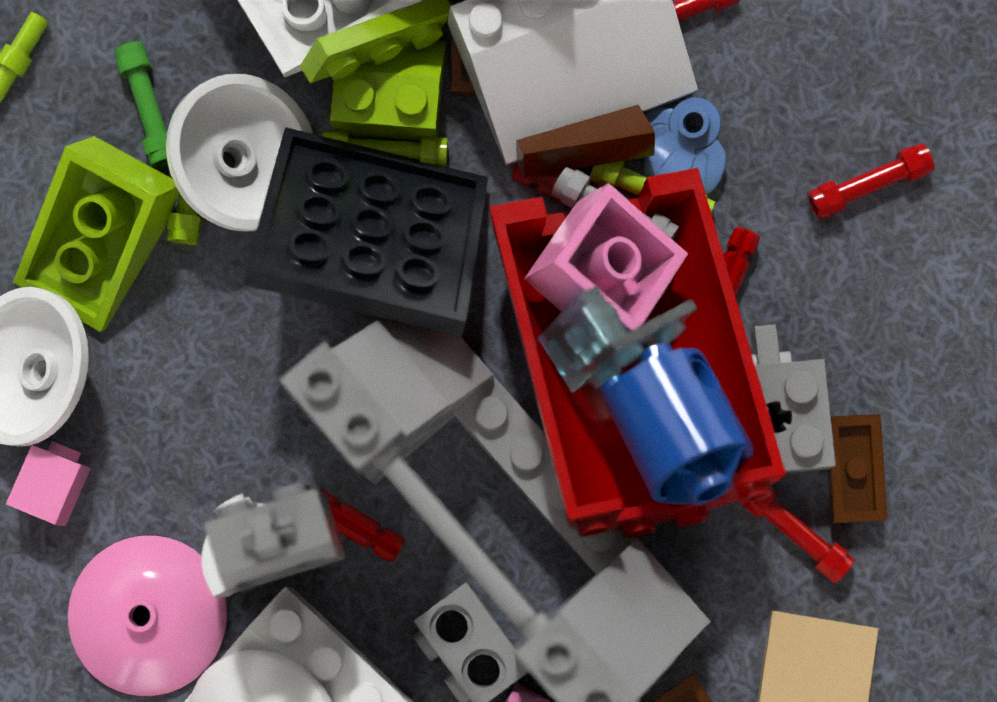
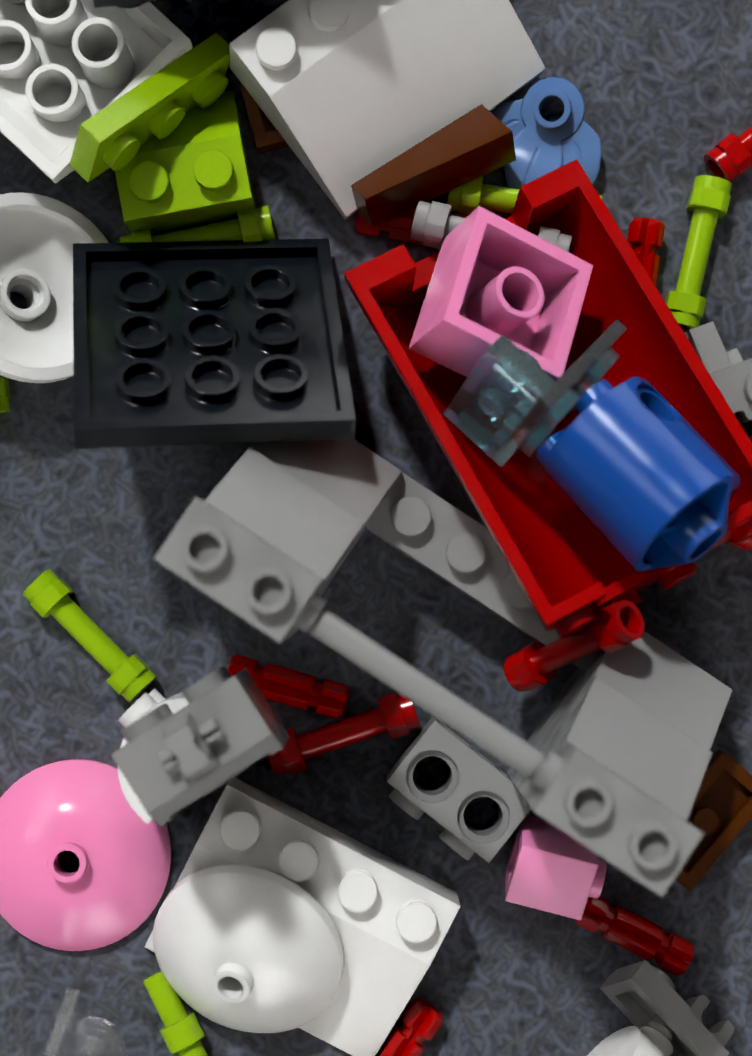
camera: 20 degrees left, 5 degrees up
(187, 402) = (50, 596): none -> lime bar
(343, 578) = (394, 715): none -> red bar
(618, 542) = (611, 631): none -> red bar
(800, 231) = (708, 202): none -> lime bar

